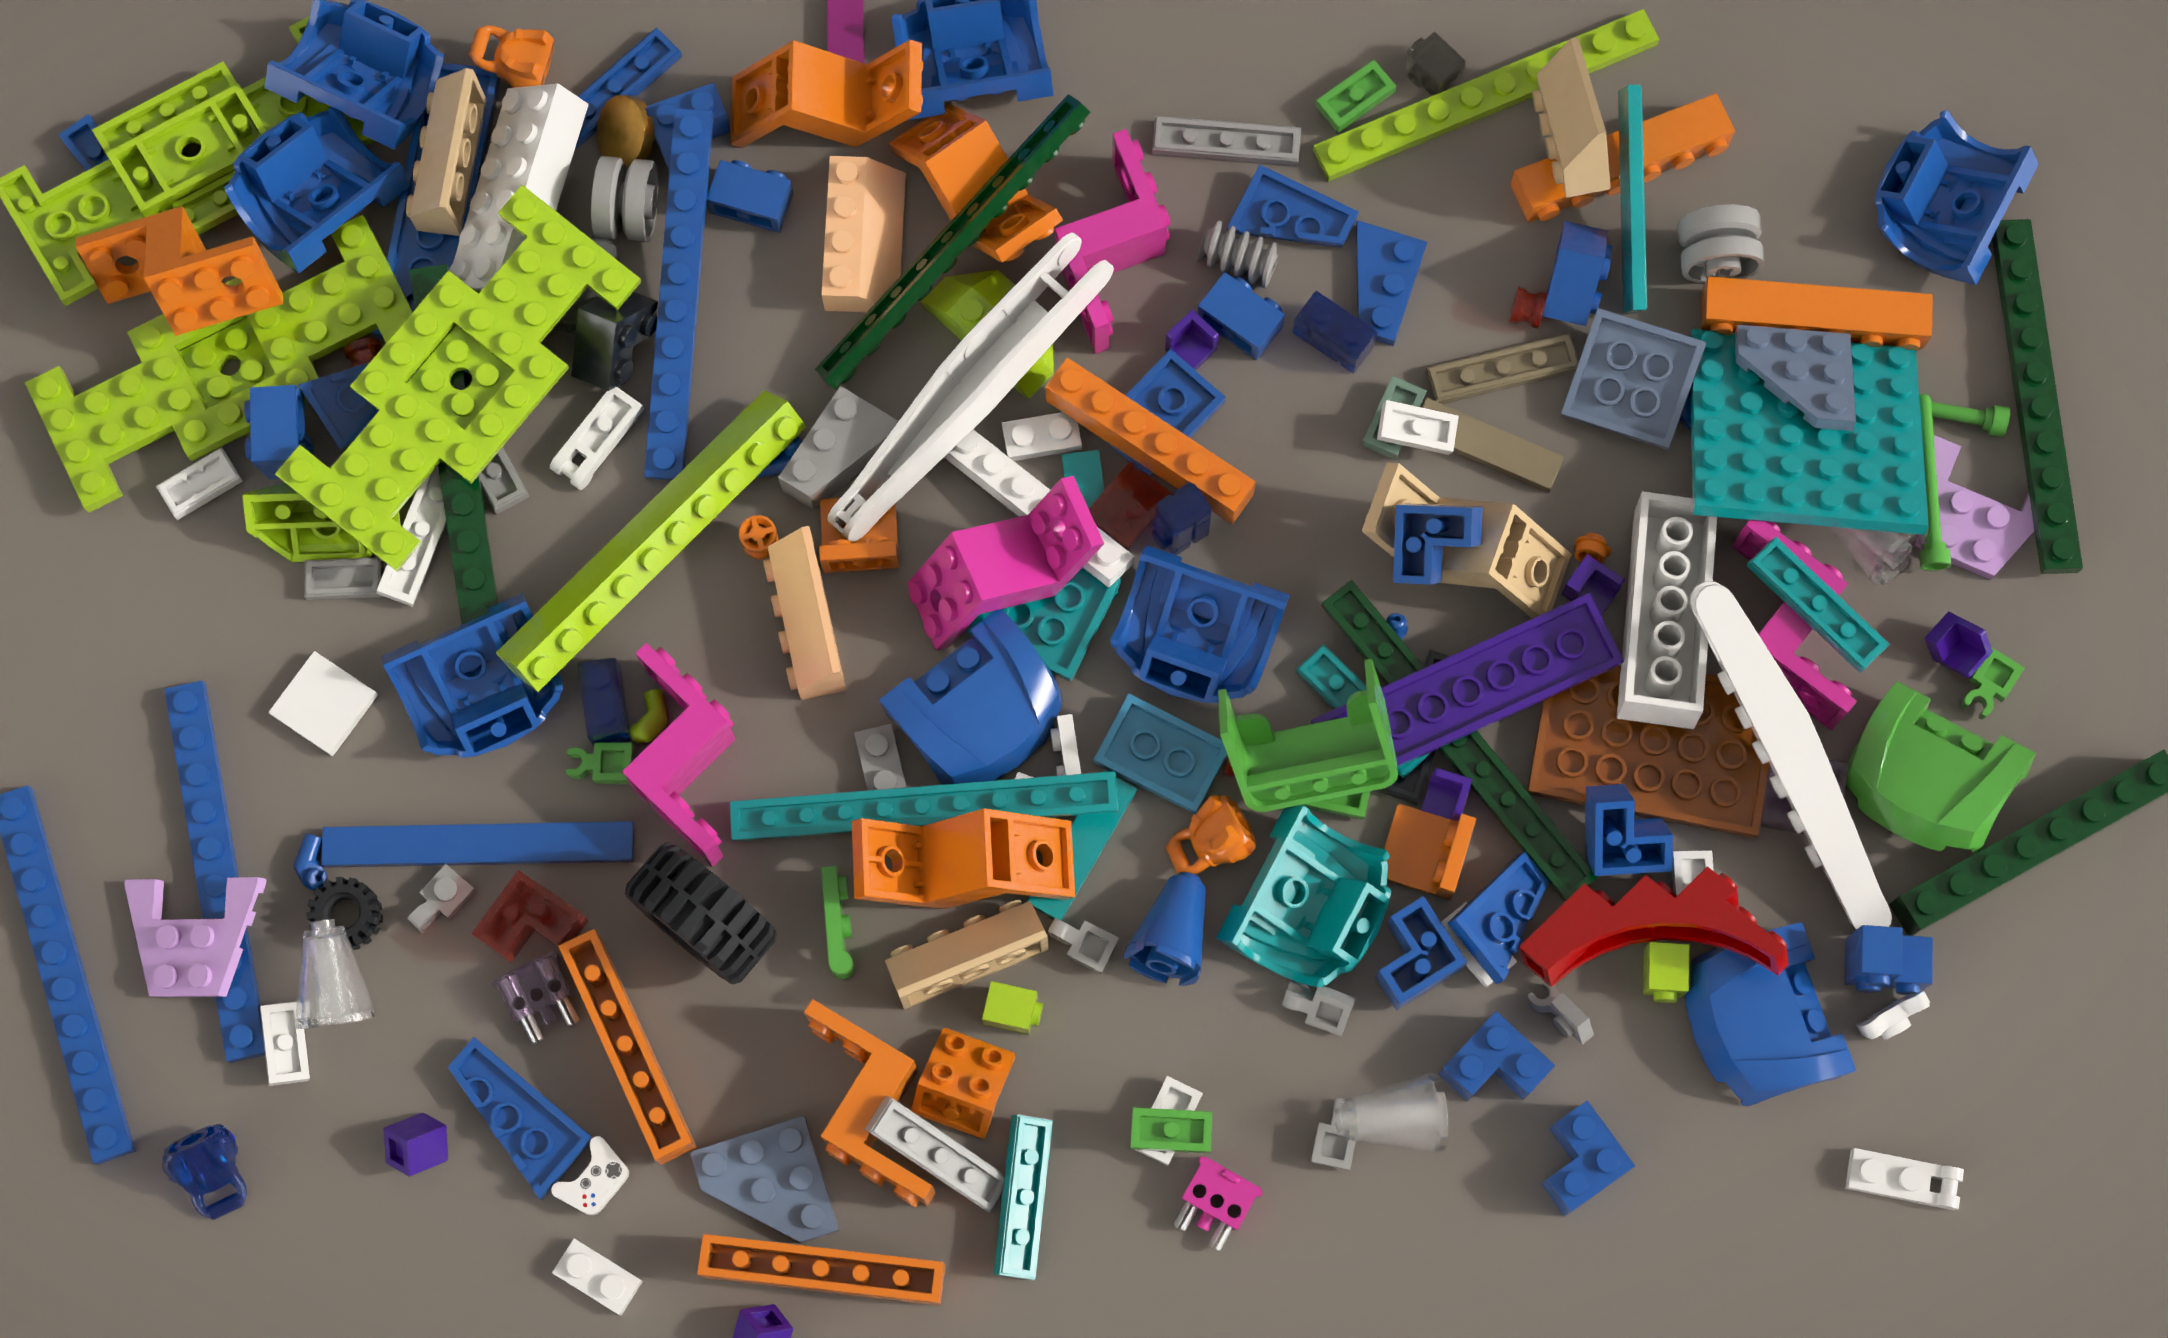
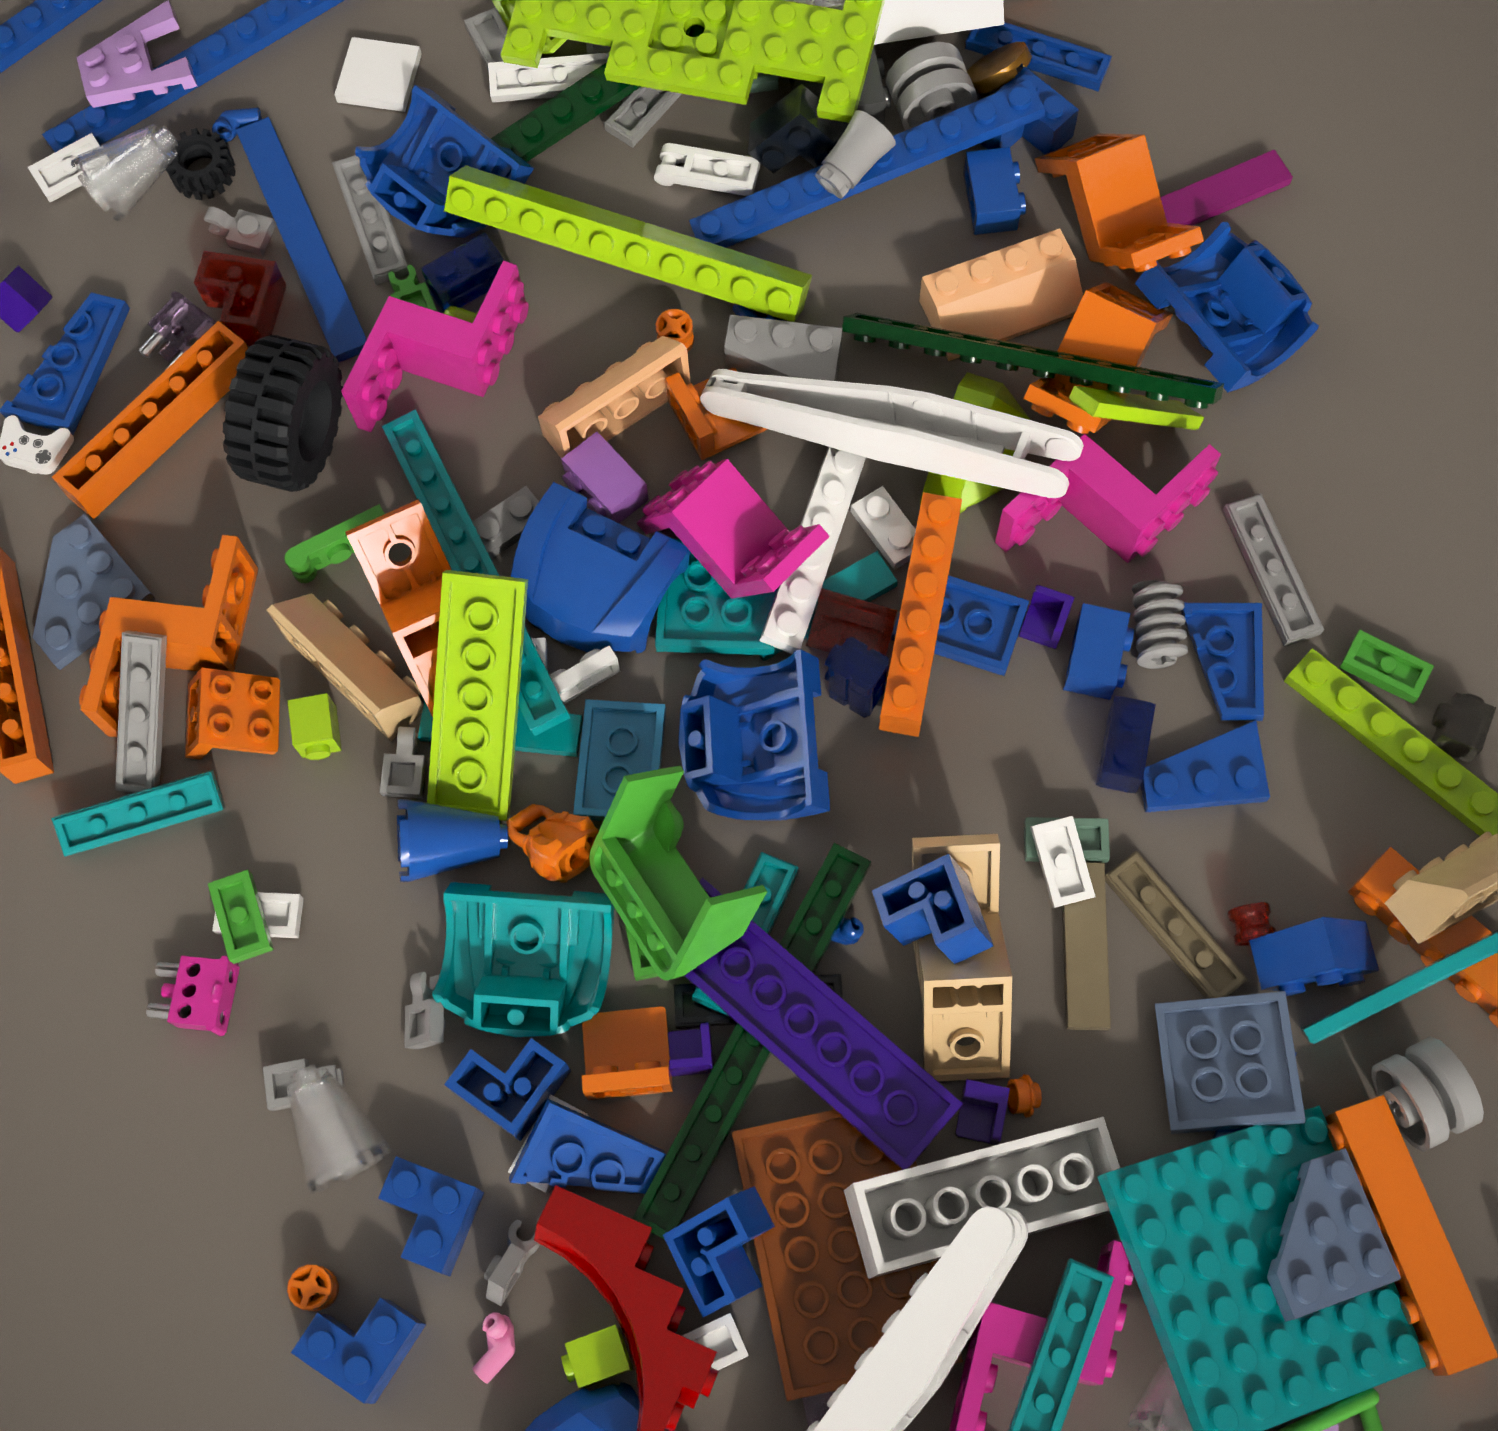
camera: 70 degrees right, 5 degrees down
(489, 772) = (371, 222): none -> light grey tile
(677, 295) = (854, 154): none -> light grey plant
(883, 659) = (604, 479): none -> medium lavender brick
(1041, 195) = (1135, 408): none -> lime tile
(1065, 840) = (477, 692): none -> lime plate
(1522, 1179) = (304, 1285): none -> orange wheel
(1625, 1049) = (500, 1346): none -> bright pink arm

